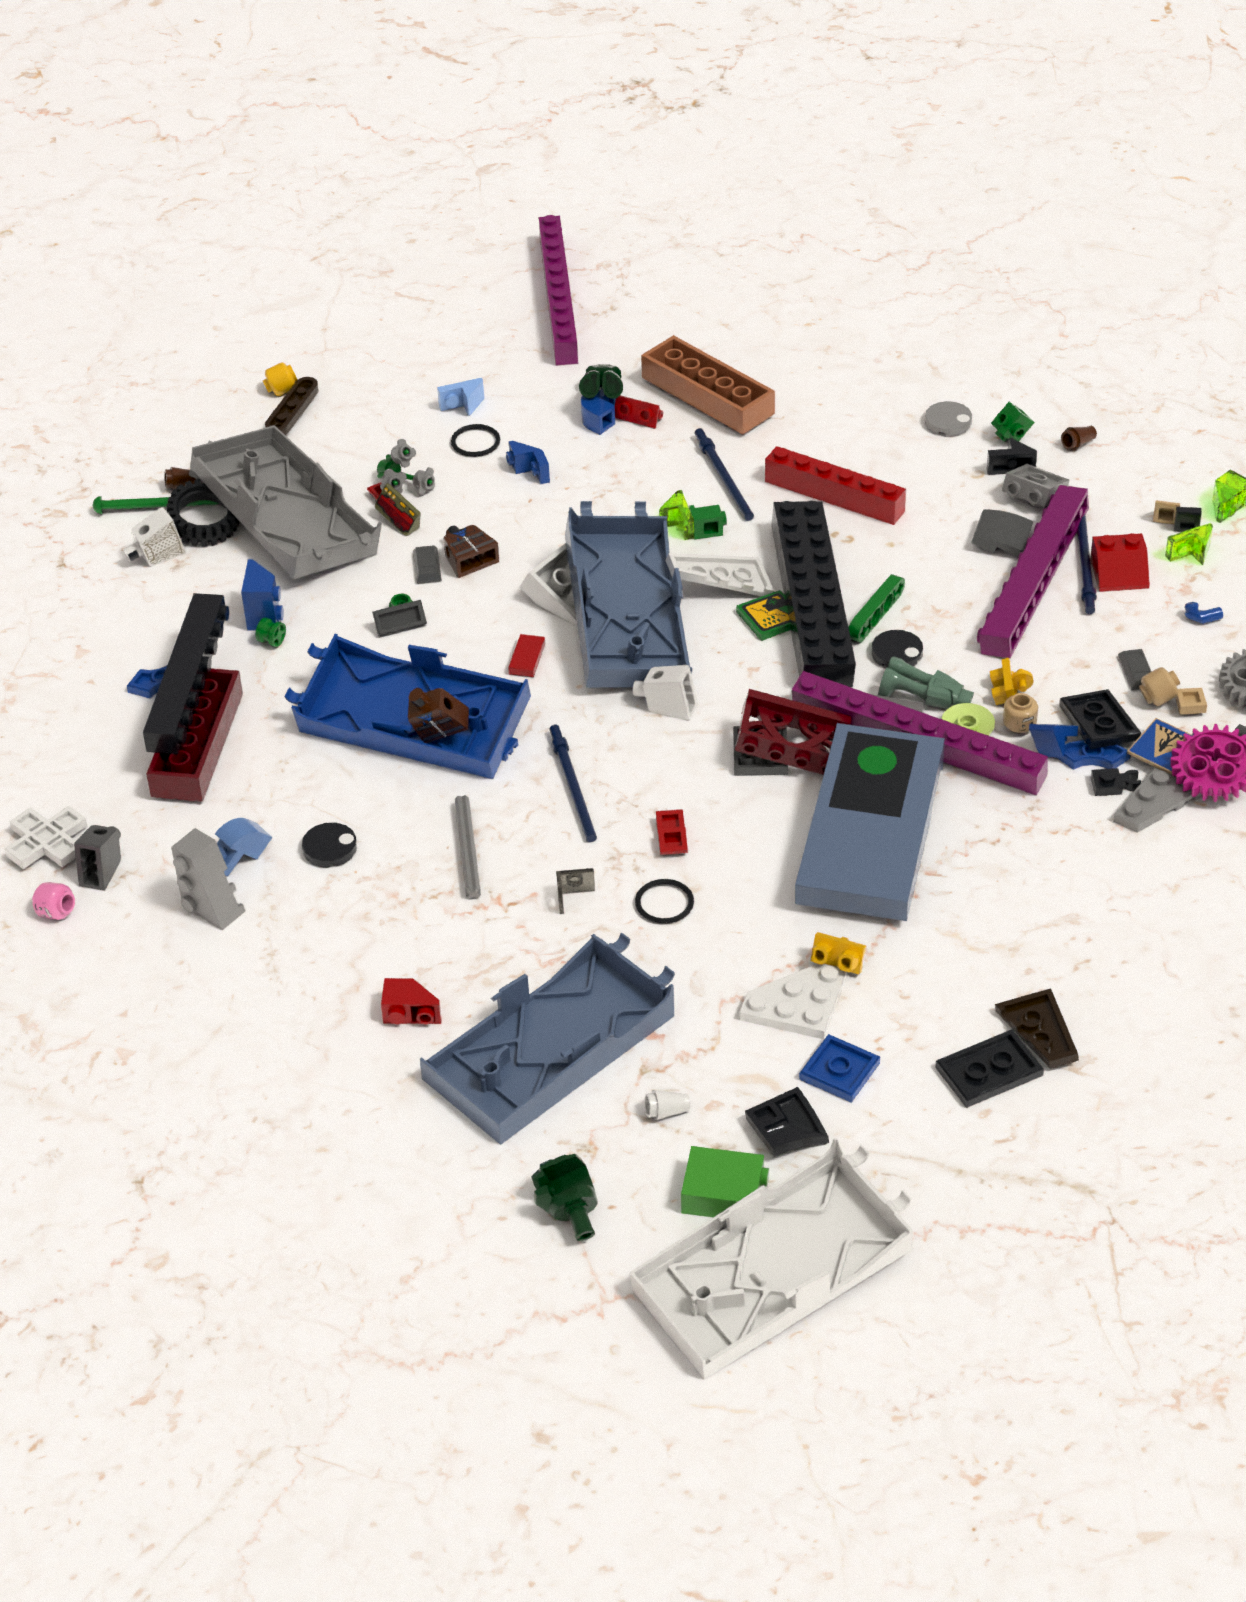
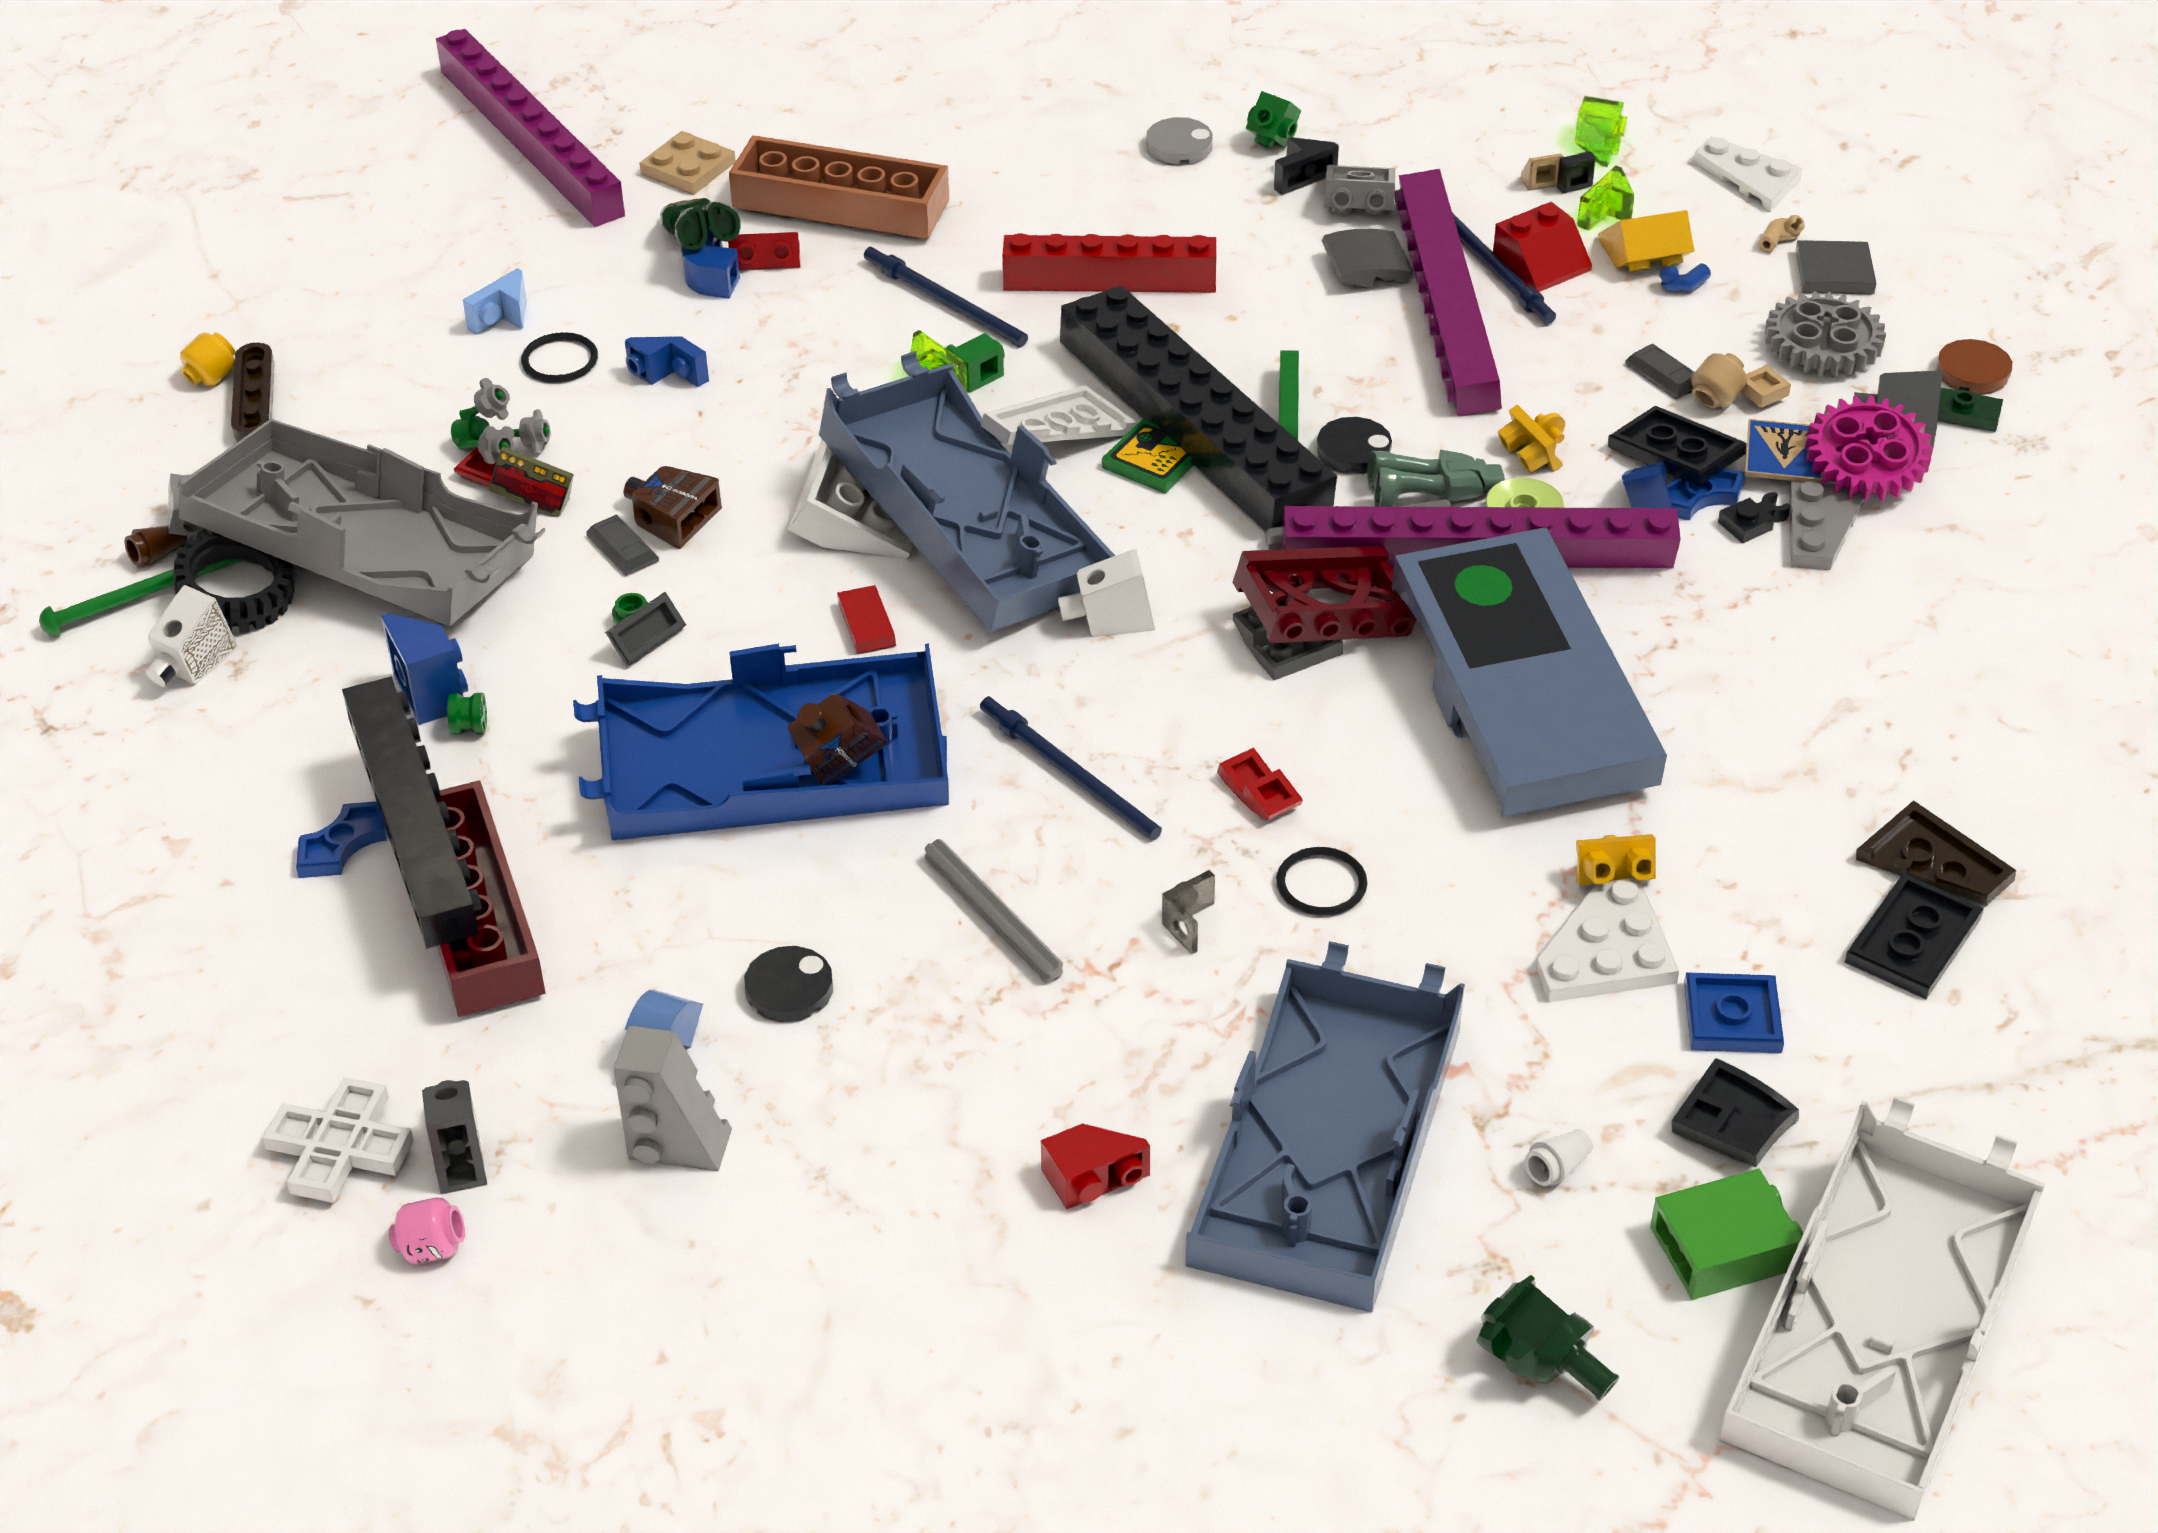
camera: 30 degrees left, 0 degrees up
(634, 339) = (687, 162): none -> tan plate
(1020, 712) = (1583, 469): tan head -> none
(1076, 437) = (1359, 115): reddish brown cone -> none
(1194, 580) = (1648, 240): none -> yellow slope

